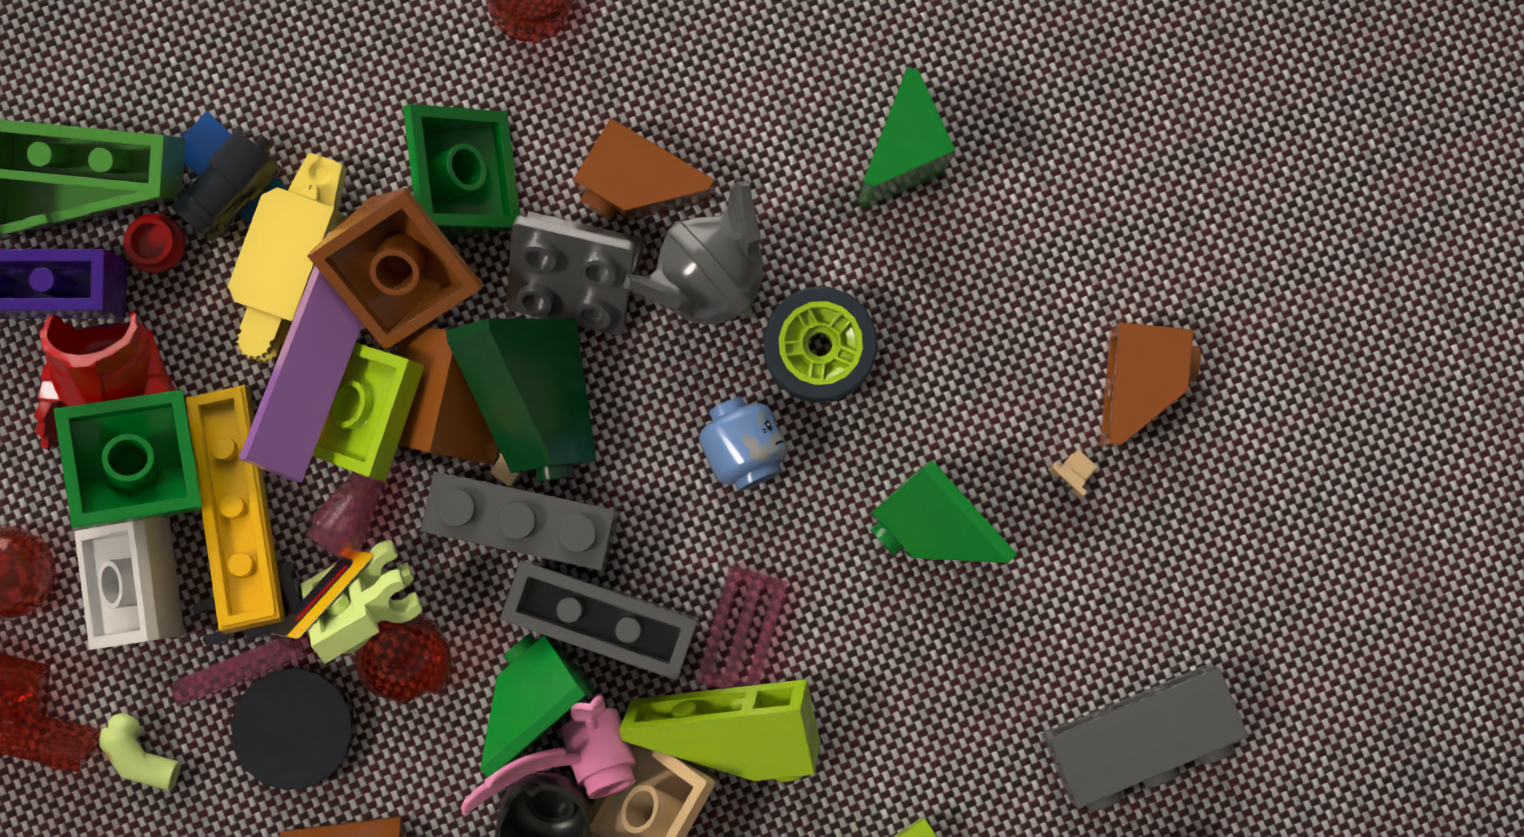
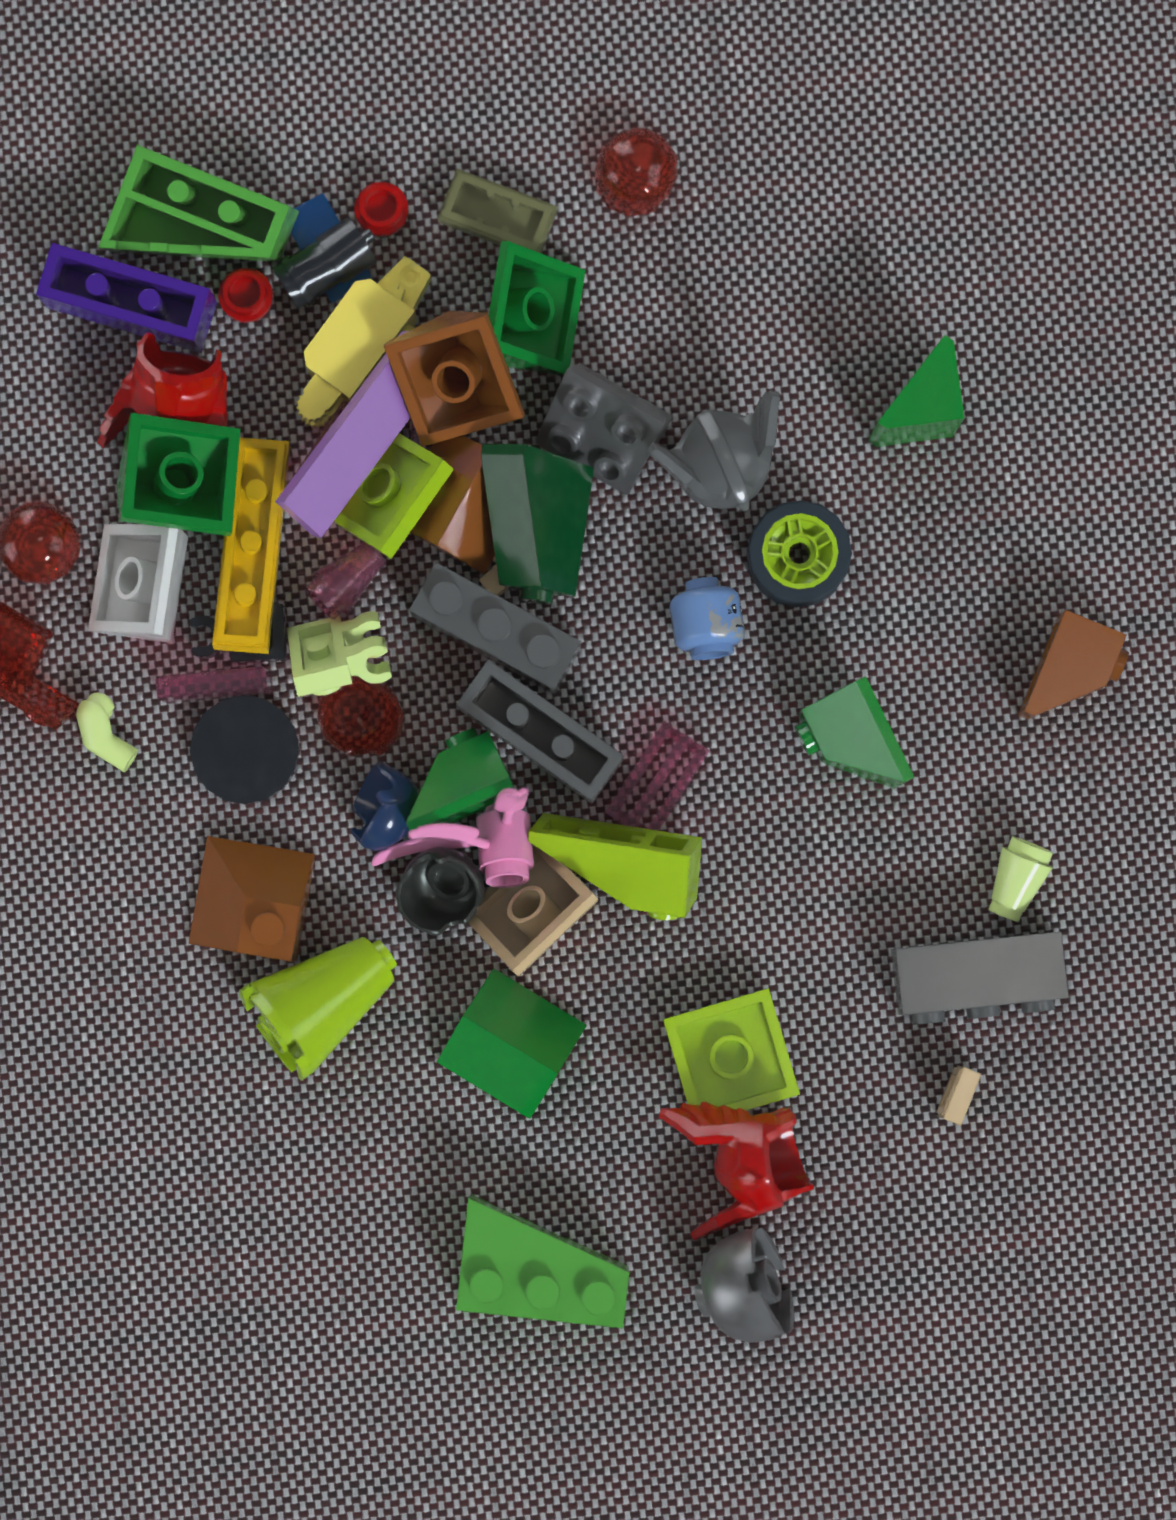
camera: 20 degrees right, 0 degrees up
(272, 110) = (381, 209): none -> red plate
(322, 595) = (308, 640): sticker -> none
(394, 78) = (496, 212): none -> olive plate
(457, 744) = (384, 807): none -> dark blue hair
(637, 177) = (683, 361): dark orange slope -> none
(1074, 472) = (987, 731): tan piece -> none
(1154, 619) = (1018, 877): none -> yellowish green cone

